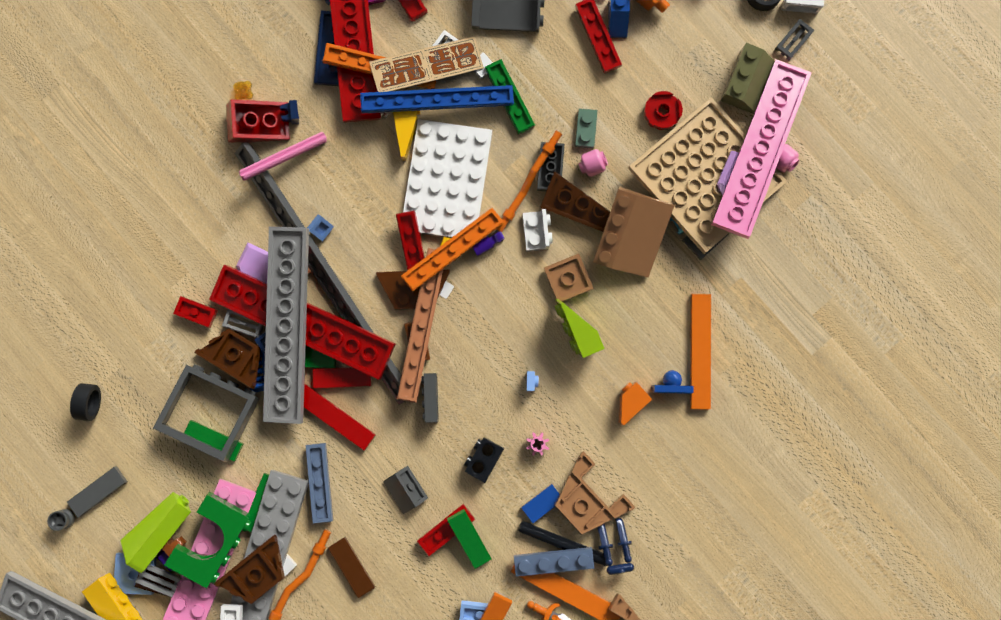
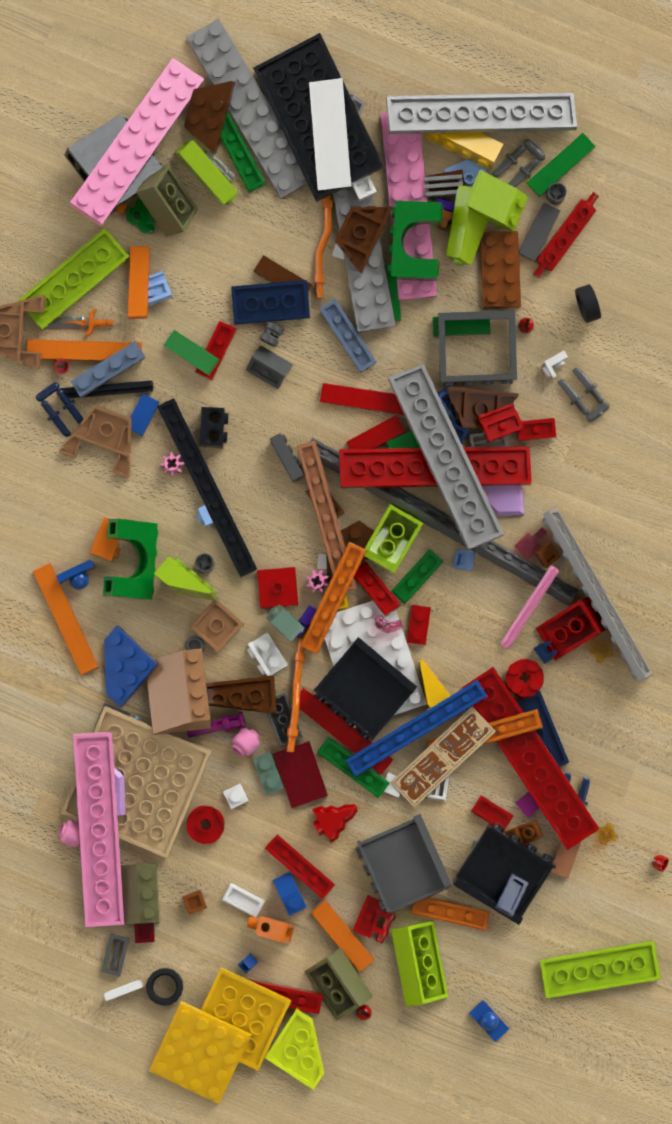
camera: 150 degrees right, 0 degrees up
(43, 544) = (561, 164): none -> green tile
(74, 476) = (566, 235): none -> red plate
(85, 573) = (524, 172): none -> dark grey piece
(114, 539) = (496, 201): none -> lime slope
(146, 321) = (576, 399): none -> dark grey piece
(150, 474) = (500, 270): none -> dark orange plate
(151, 363) = (555, 361): none -> white bracket
(155, 415) = (521, 325): none -> red hinge
(219, 130) = (593, 588): none -> light grey plate
(222, 332) = (500, 422): none -> red plate
(244, 196) = (547, 554): none -> dark orange plate
(256, 214) = (529, 543): none -> clear pink plate
(310, 101) = (517, 686): none -> red plate
(369, 235) = (417, 576): none -> green tile
(372, 276) = (393, 538): none -> lime slope
(373, 549) = (270, 302): none -> dark blue tile
(387, 519) = (271, 334): none -> dark grey wheel
(389, 191) = (418, 625): none -> red plate
(417, 200) = (387, 626): none -> clear pink arm
(456, 268) = (312, 583): none -> bright pink gear
(466, 155) = (364, 689): none -> black panel
(497, 285) = (277, 587): none -> red plate
(506, 140) = (337, 727): none -> red tile
(506, 247) = (284, 622): none -> sand green slope
(516, 407) = (207, 488): none -> black plate
(550, 60) = (333, 819): none -> red rock
(553, 336) = (202, 563): none -> dark grey wheel
(558, 112) = (300, 775): none -> dark red tile
(596, 272) = (194, 643): none -> dark grey tile
(596, 582) = (60, 370): none -> red hinge
(601, 187) = (226, 724): none -> magenta pin
(618, 349) = (144, 539): none -> green arch
(624, 122) = (235, 796): none -> white plate
(661, 32) = (243, 900): none -> white tile
(667, 282) = (125, 666): none -> blue plate
(704, 49) = (194, 902): none -> dark orange plate
(762, 41) = (144, 932): none -> dark red plate

